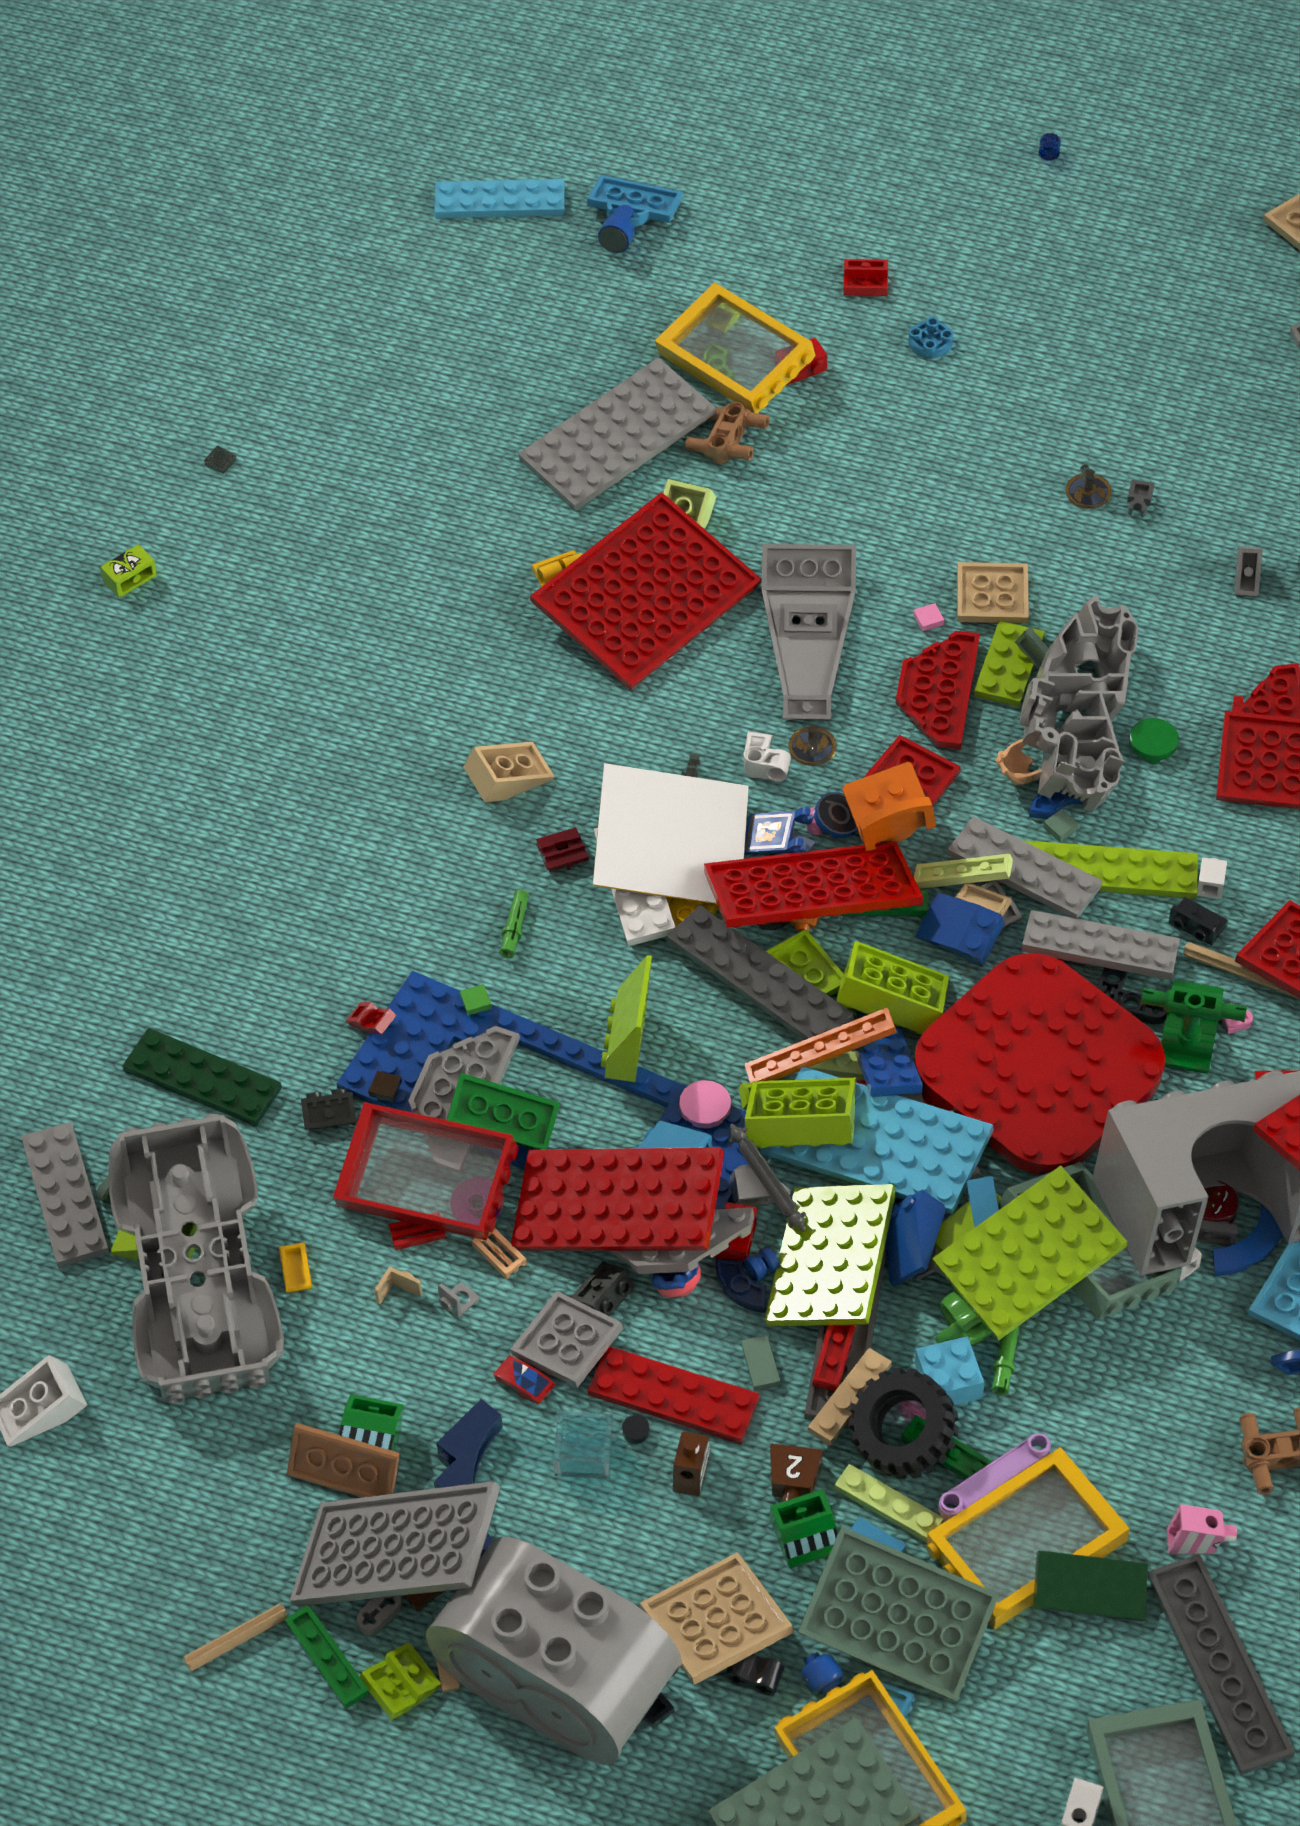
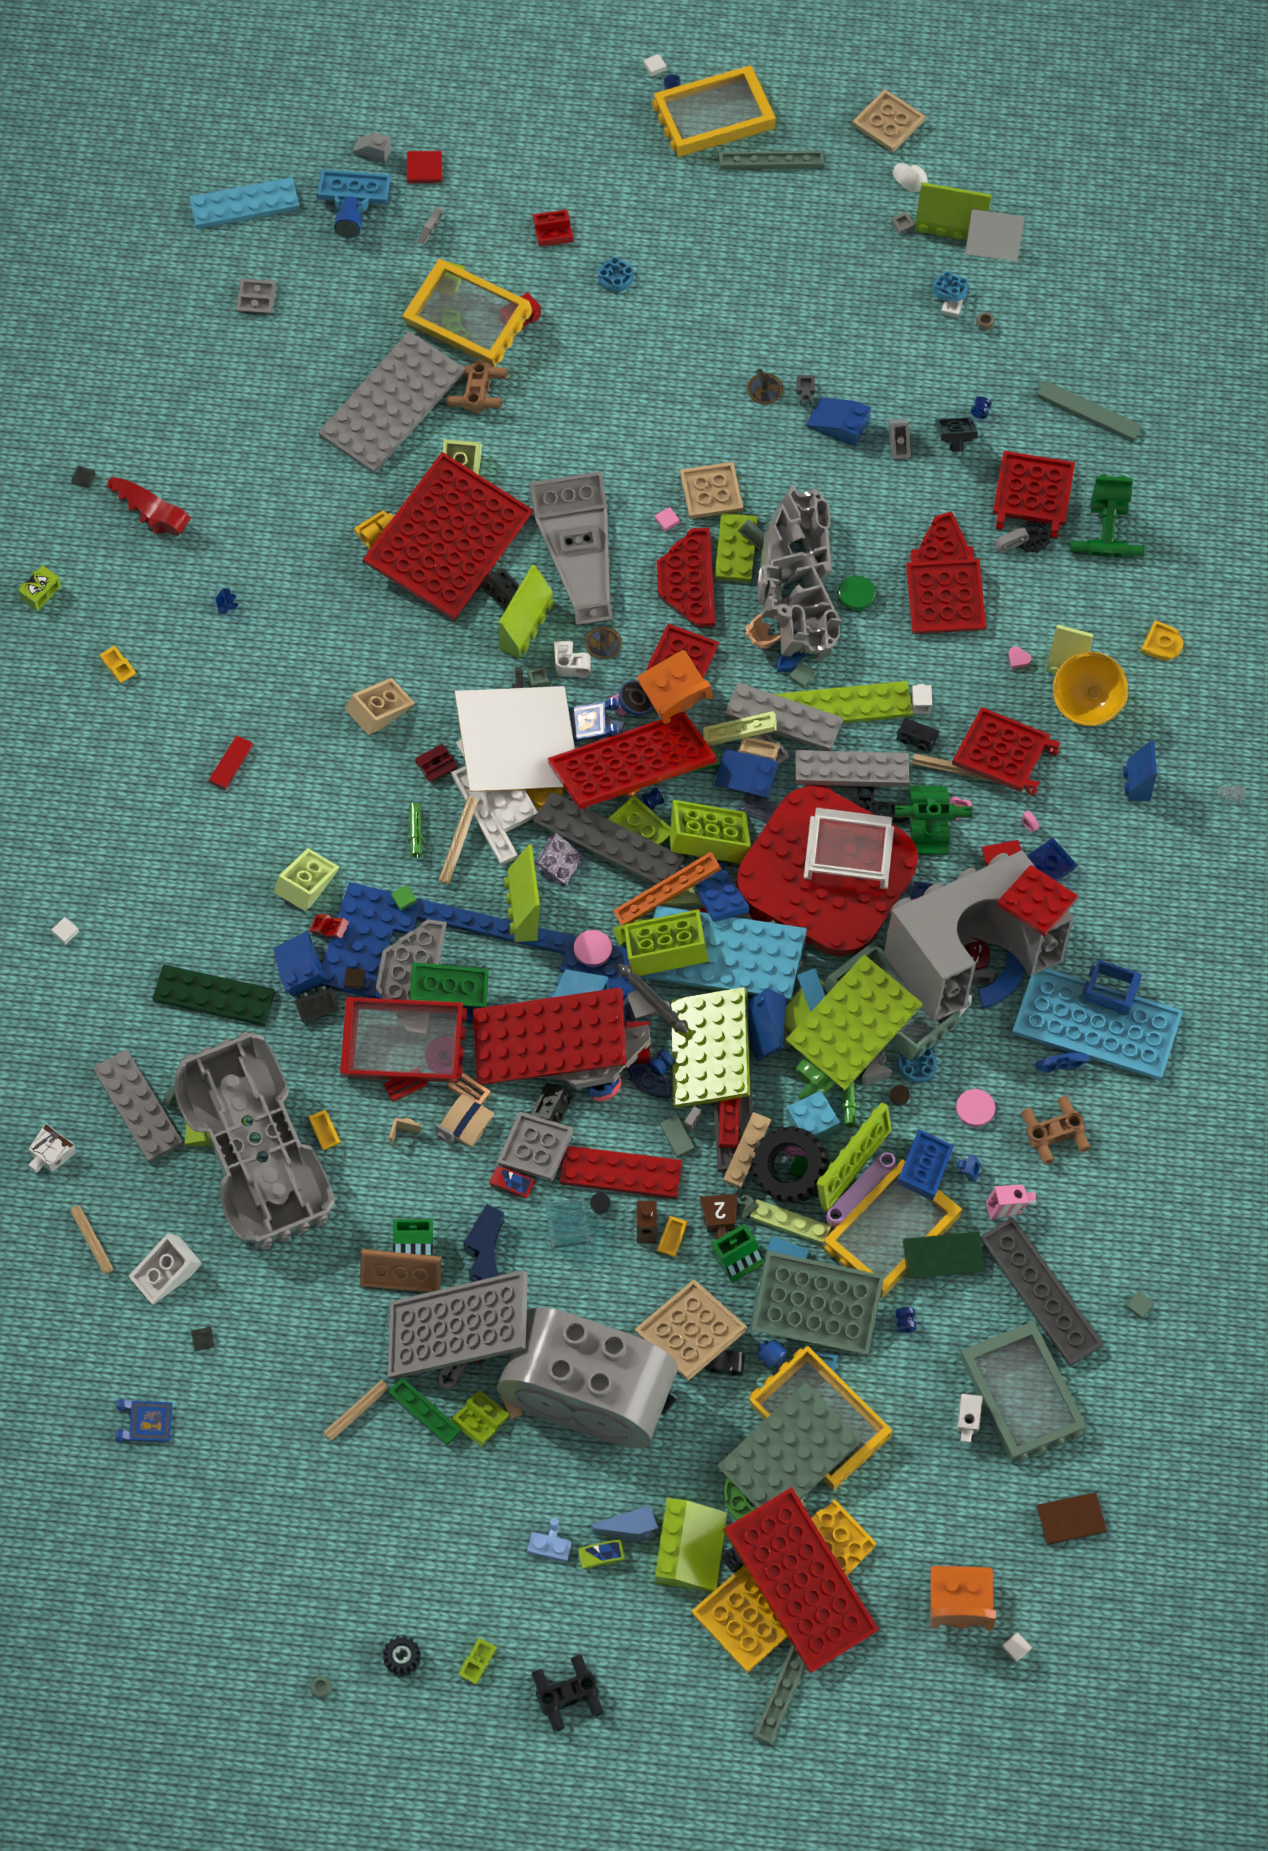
camera: 15 degrees left, 10 degrees up
(38, 967) = (65, 930): none -> white tile
(60, 1503) = (202, 1339): none -> clear smoke tile
(197, 671) = (117, 665): none -> yellow slope
(300, 513) = (159, 514): none -> red animal
(304, 806) = (231, 762): none -> red tile
(319, 1058) = (299, 965): none -> blue slope
(351, 621) = (225, 601): none -> clear blue tile
(356, 957) = (305, 879): none -> yellowish green slope
(485, 297) = (256, 296): none -> light grey slope
(485, 1290) = (467, 1120): none -> tan slope
(565, 944) = (458, 840): none -> tan axle
(607, 925) = (486, 820): none -> white plate
(671, 161) = (373, 147): none -> light grey slope
(688, 990) = (558, 860): none -> clear purple plate
(700, 662) = (500, 587): none -> pearl dark grey bracket
(716, 251) = (430, 225): none -> light grey tile
(718, 690) = (525, 613): none -> lime slope
(719, 770) = (538, 677): none -> sand green tile
(722, 1490) = (672, 1236): none -> yellow tile
(726, 191) = (424, 166): none -> red tile
(786, 1343) = (692, 1119): none -> light grey tile
(830, 937) = (653, 798): none -> clear blue wheel
(834, 1470) = (747, 1205): none -> sand green tile
(962, 971) = (757, 807): none -> tile
(993, 1429) = (854, 1156): none -> lime plate
(1020, 1662) = (905, 1319): none -> clear blue wheel
(1033, 124) = (654, 65): none -> white tile
(1050, 1326) = (875, 1070): none -> light grey slope
(1075, 1031) = (849, 845): none -> piece
(1076, 1365) = (899, 1095): none -> dark brown tile
(1090, 1459) = (925, 1164): none -> blue plate
(1094, 180) = (713, 111): none -> window
(1109, 1334) = (919, 1069): none -> dark azure tile
(1153, 1477) = (970, 1167): none -> blue tile
(1154, 243) = (771, 160): none -> sand green tile
(1177, 538) = (840, 419): none -> blue slope
(1177, 1401) = (975, 1108): none -> bright pink tile

